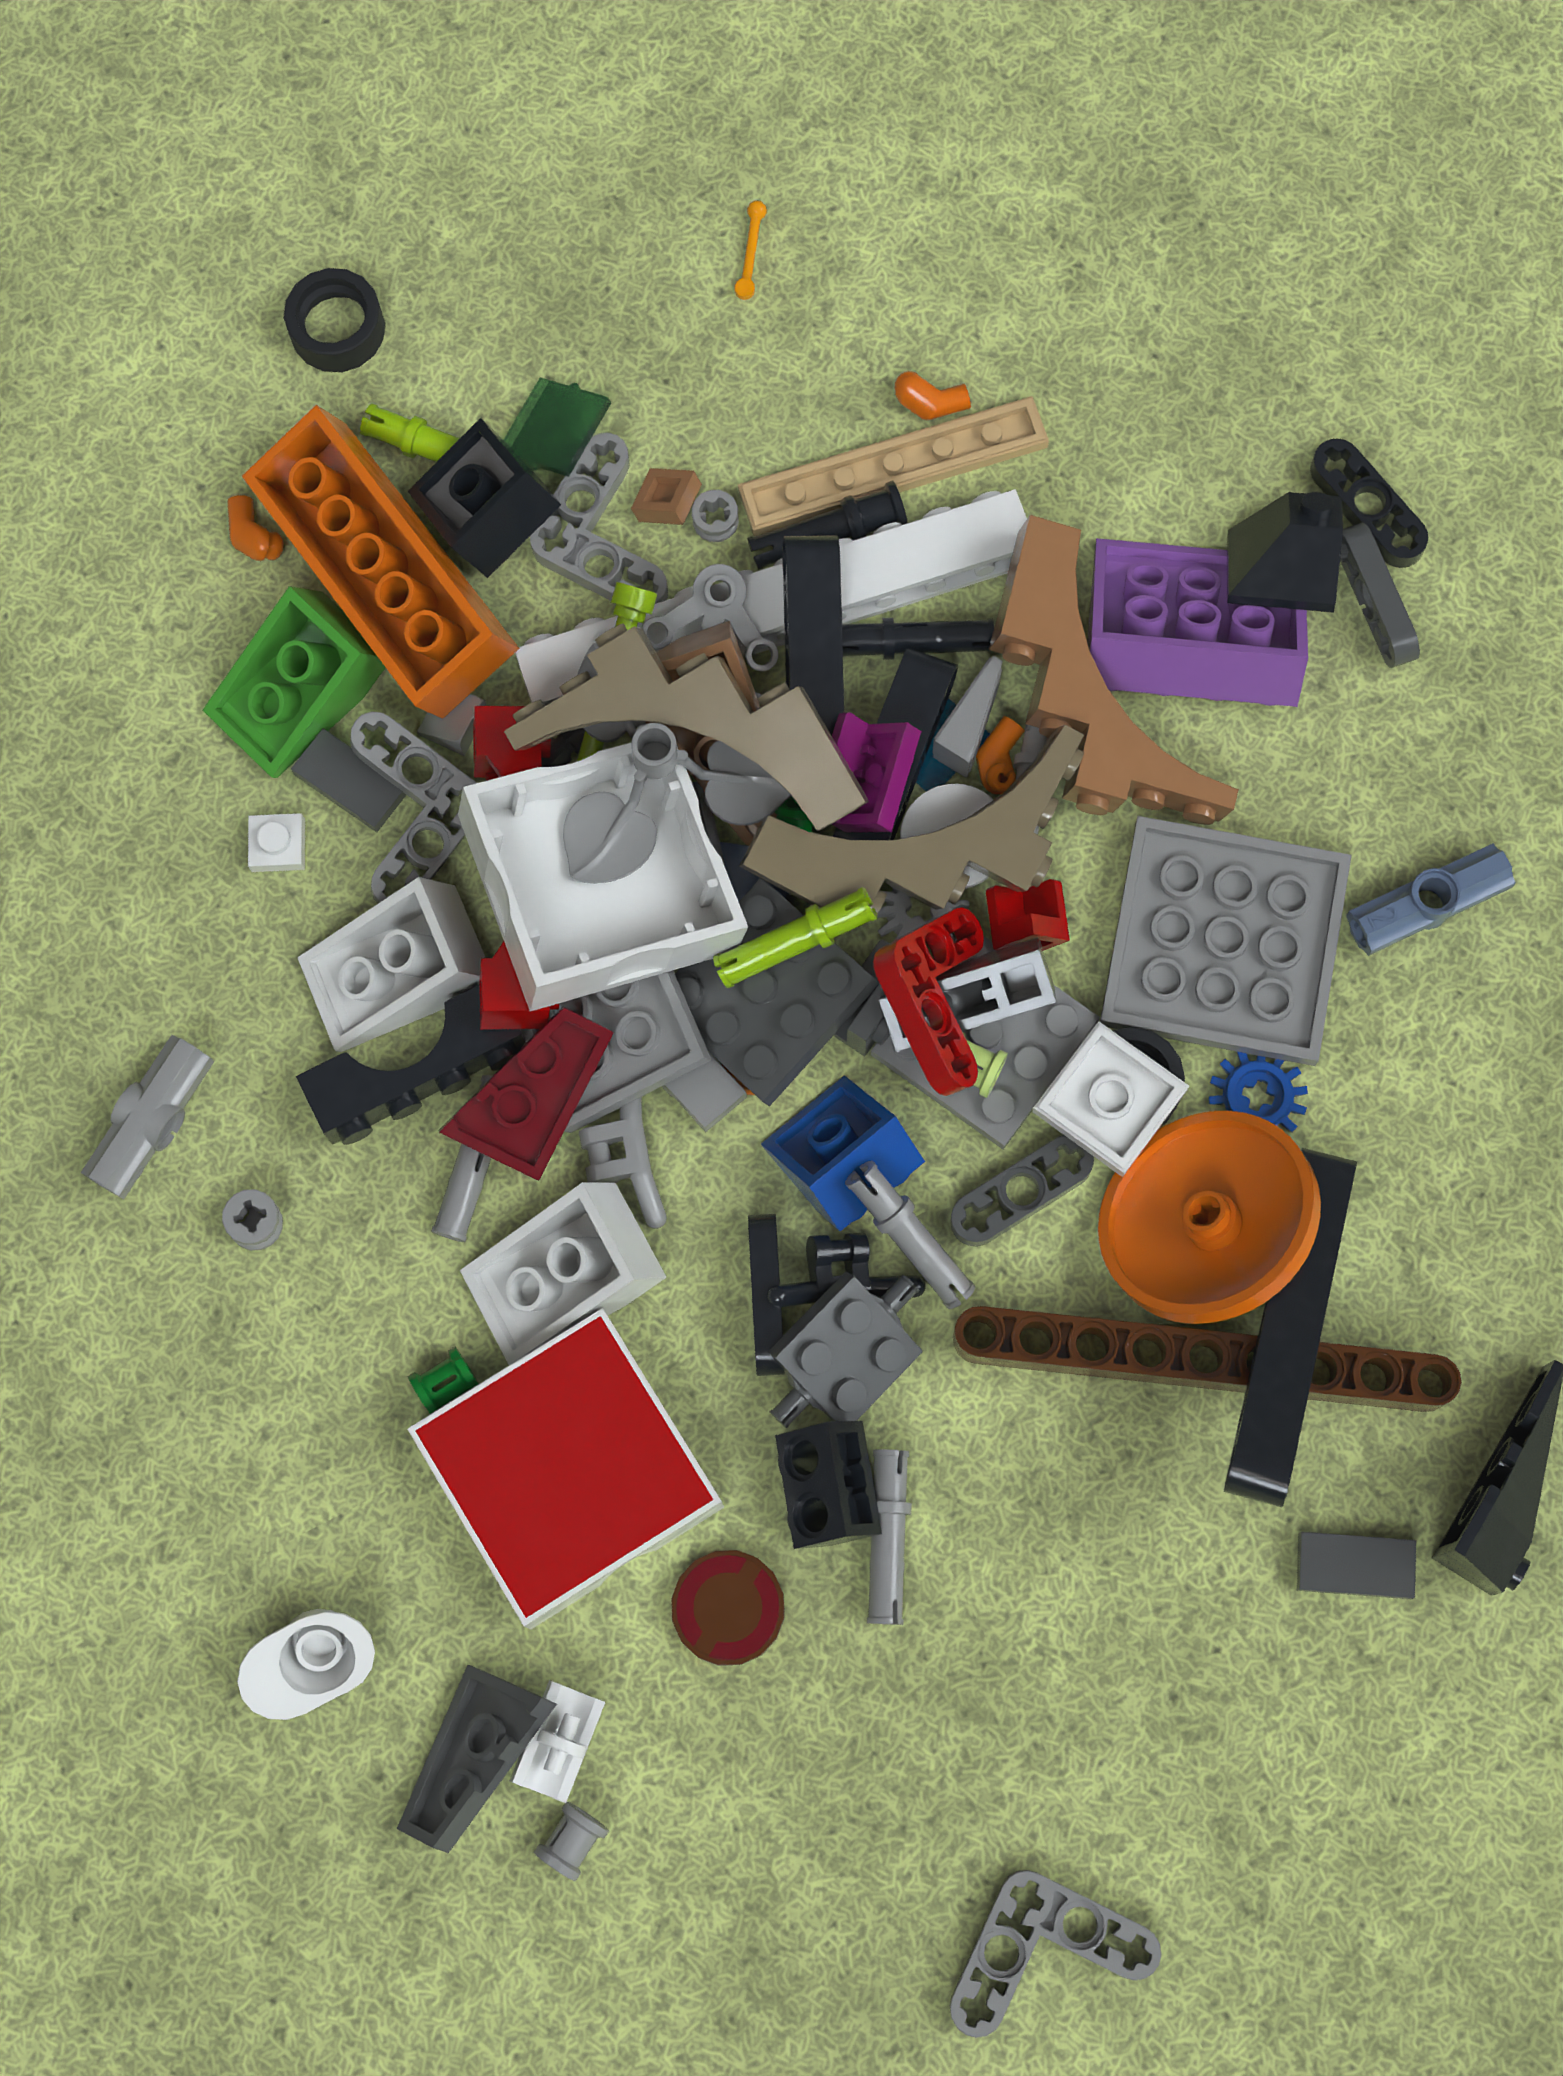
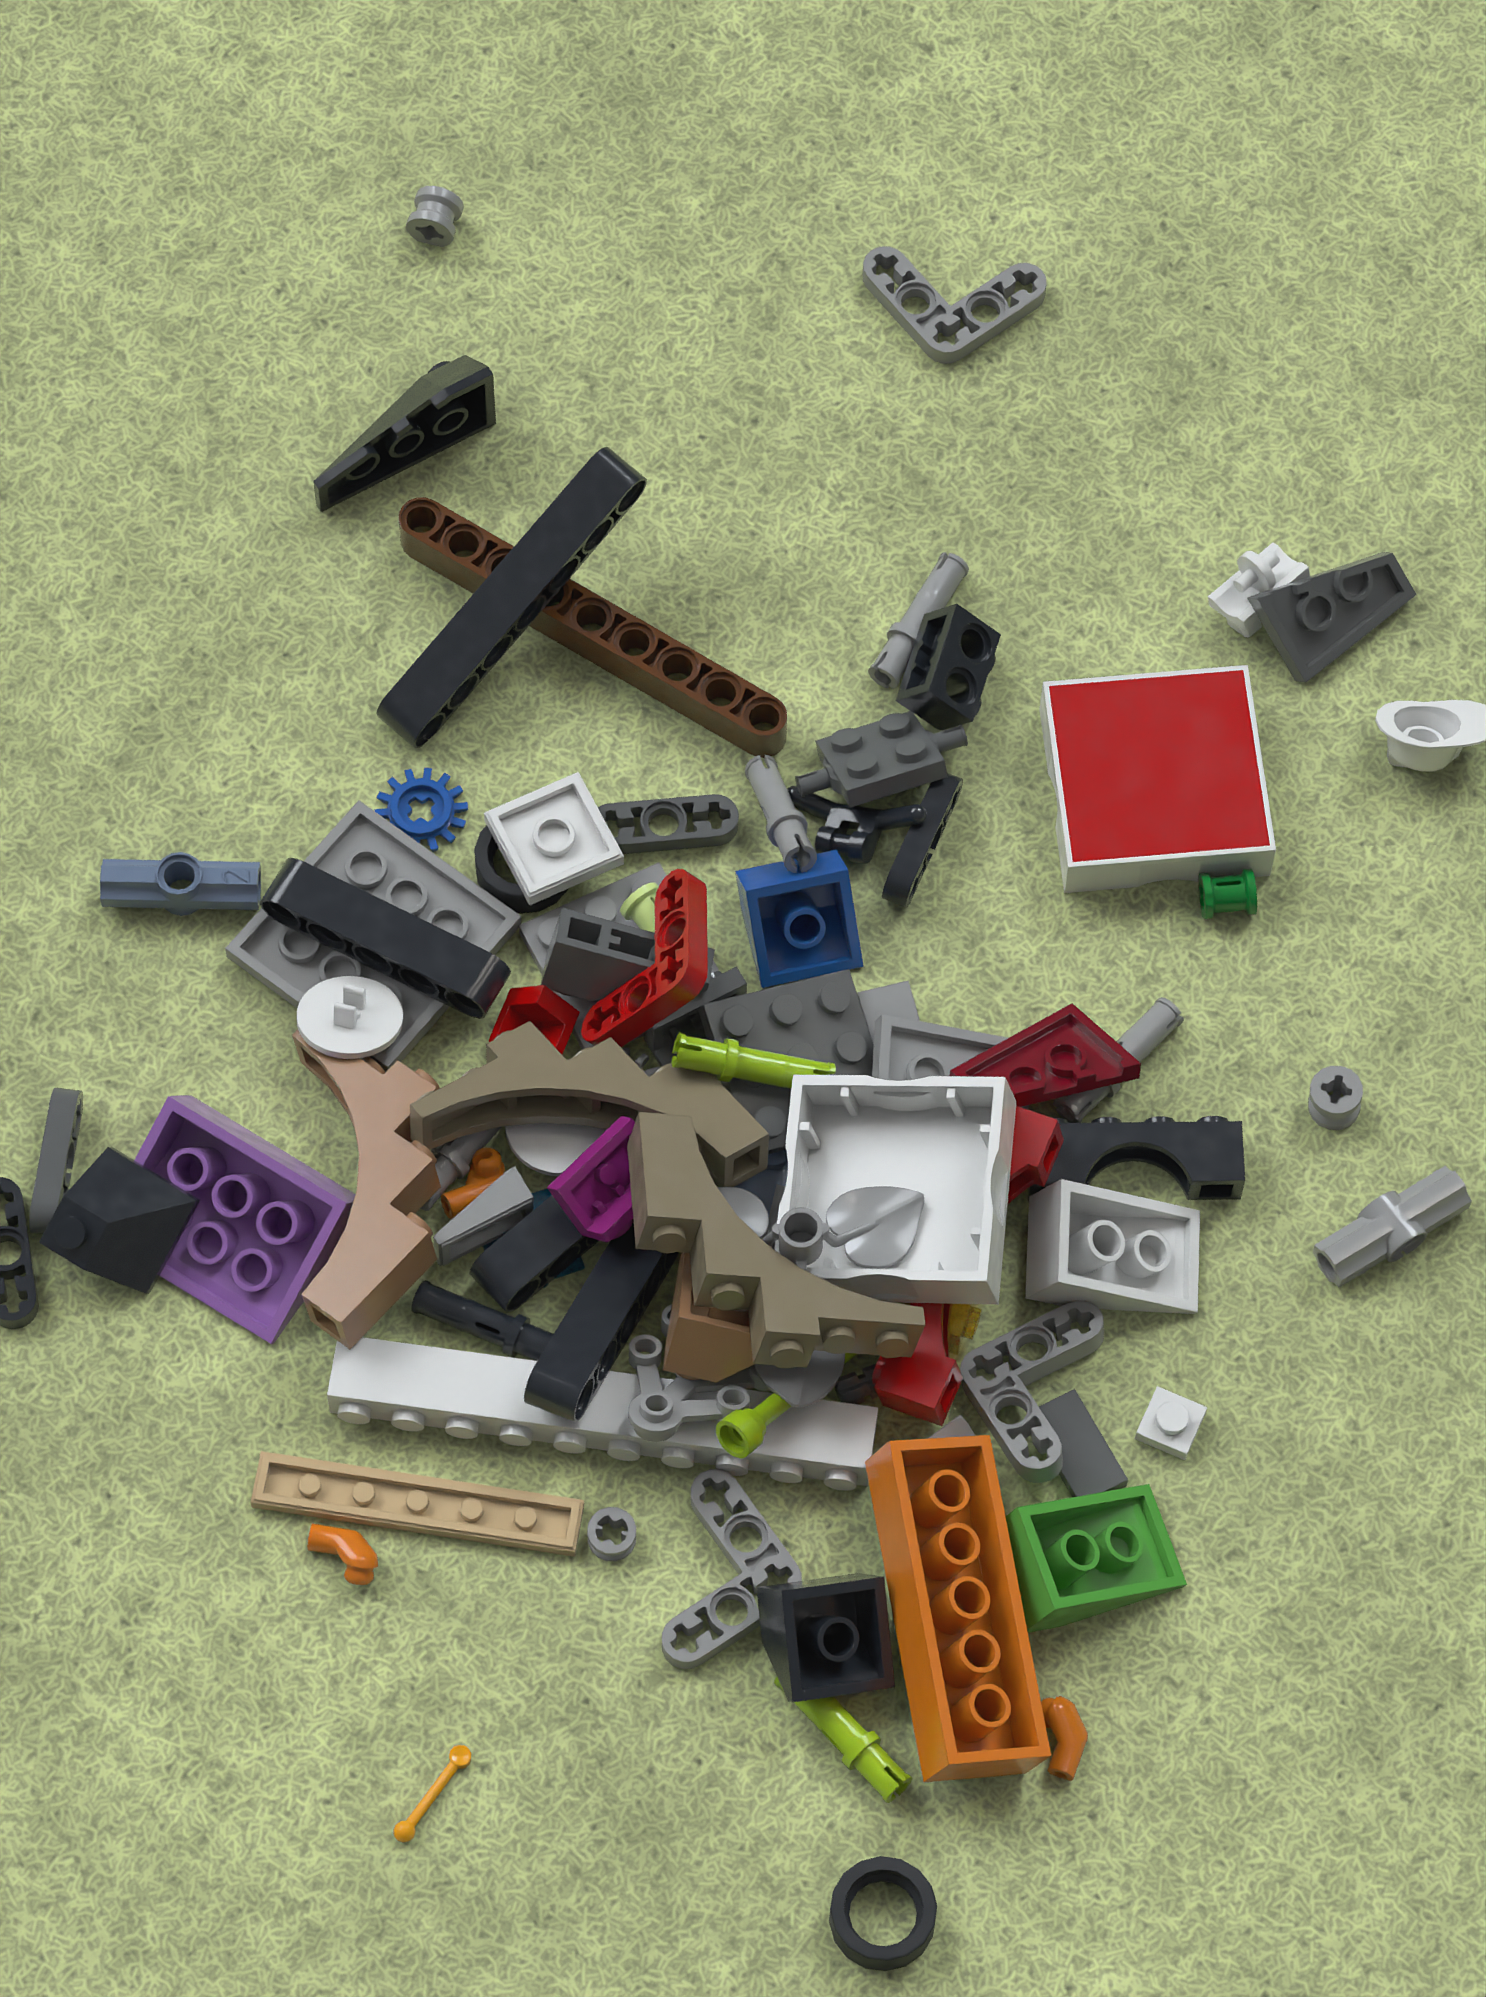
camera: 160 degrees left, 10 degrees down
(556, 425) = (720, 1695): clear green piece -> none
(562, 1269) = (1084, 931): white slope -> none
(571, 1841) = (1281, 522): light grey bush -> none
(635, 1165) = (982, 989): light grey piece -> none
(666, 496) = (649, 1567): medium nougat plate -> none
(728, 1608) = (1074, 631): reddish brown tile -> none
(852, 520) = (488, 1461): black pin -> none
(1196, 830) = (349, 1017): none -> white piece
(1209, 920) = (385, 938): none -> black beam
(1210, 1217) = (527, 704): orange dish -> none
(1356, 1565) = (554, 437): dark grey tile -> none

